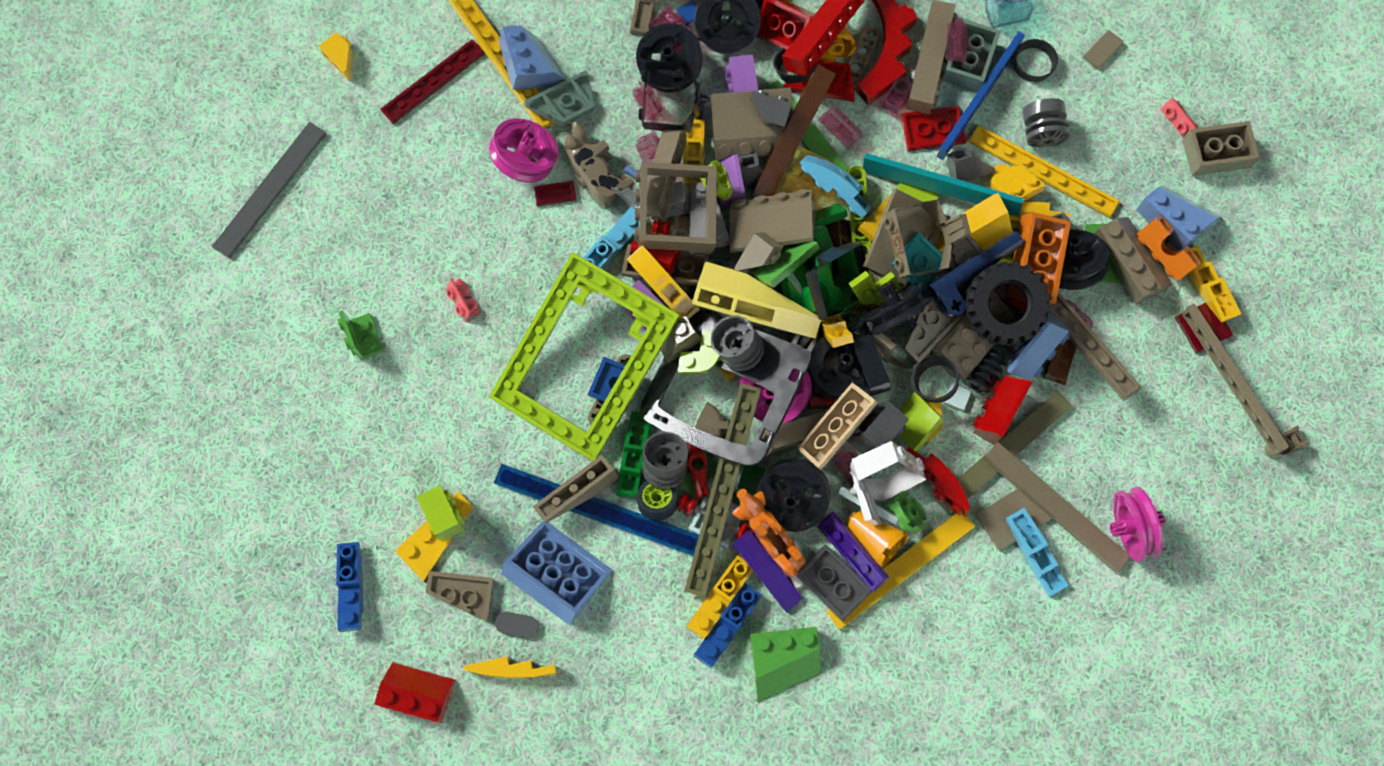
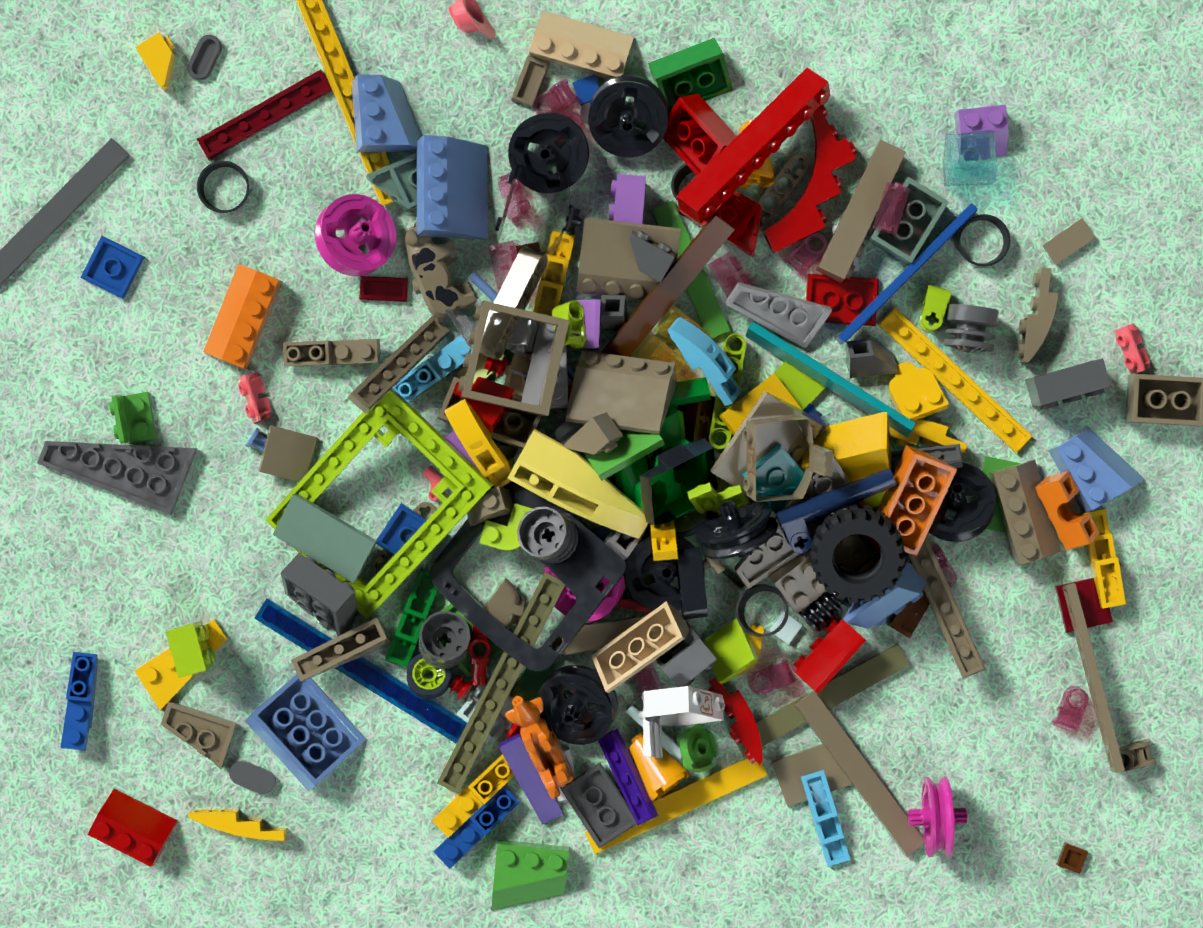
camera: 10 degrees right, 15 degrees up
(325, 221) = (112, 267): none -> blue tile
(365, 380) = (133, 471): none -> flat silver wing
(376, 48) = (204, 57): none -> dark grey tile
(403, 123) = (204, 174): none -> black tyre
(441, 236) = (242, 316): none -> orange slope
(473, 334) = (256, 440): none -> medium blue piece
(497, 337) = (287, 453): none -> dark tan tile
(521, 250) = (331, 352): none -> dark tan slope
(543, 397) = (324, 537): none -> sand green tile
(548, 446) = (320, 592): none -> dark grey wedge
(579, 237) = (398, 364): none -> dark tan tile
(595, 100) = (451, 188): none -> medium blue slope
(631, 342) = (434, 478): none -> coral arm
(886, 142) = (781, 313): none -> light grey wing
(958, 439) = (775, 676): none -> clear pink piece
(1010, 118) = (936, 305): none -> lime piece
(1098, 107) = (1036, 327): none -> dark tan slope
(1137, 149) = (1068, 384): none -> dark grey brick
(1222, 417) = (1070, 712): none -> clear pink piece
(1262, 543) = (1072, 857): none -> reddish brown tile

